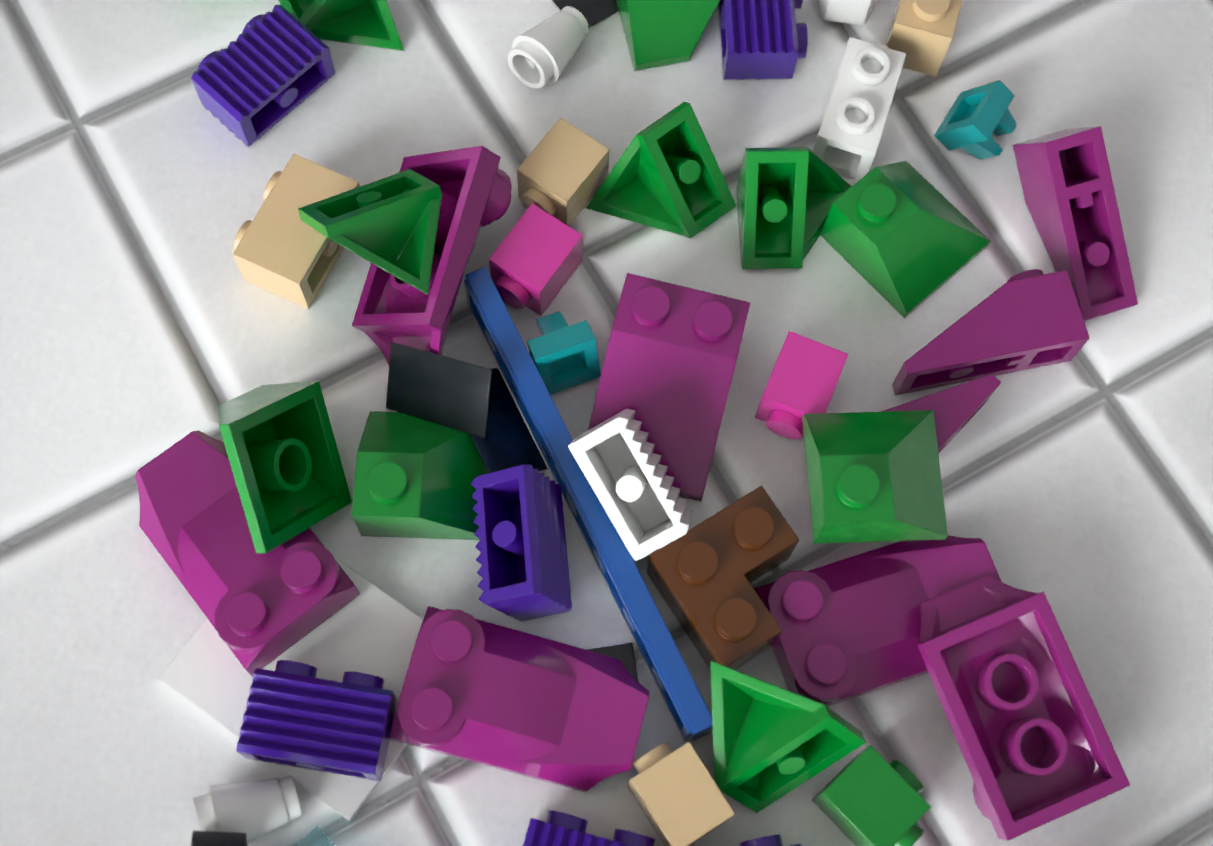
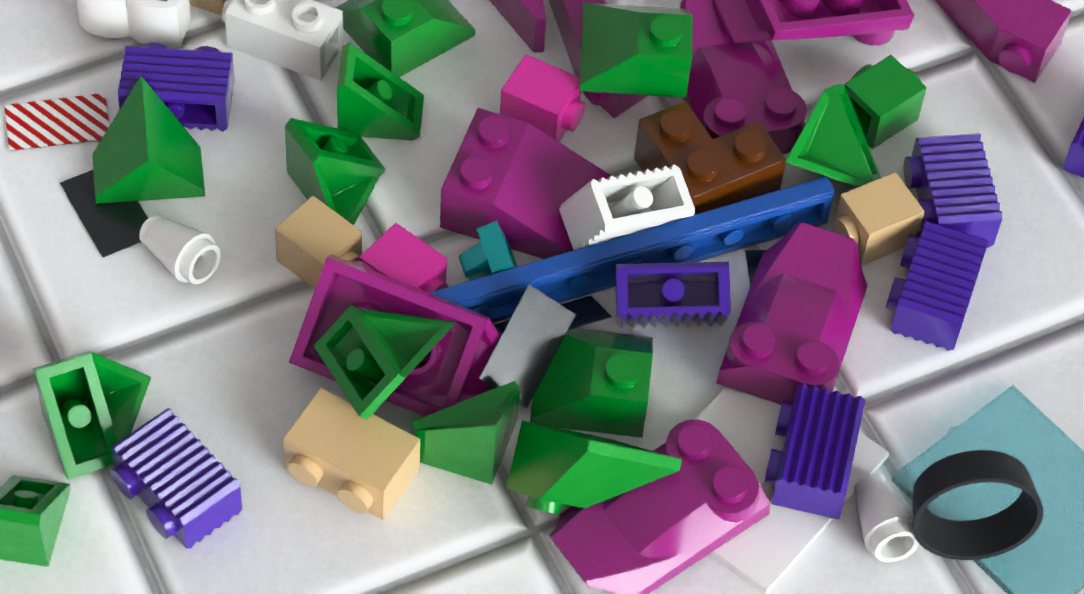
camera: 85 degrees left, 15 degrees down
(323, 346) = (470, 434): none -> green slope

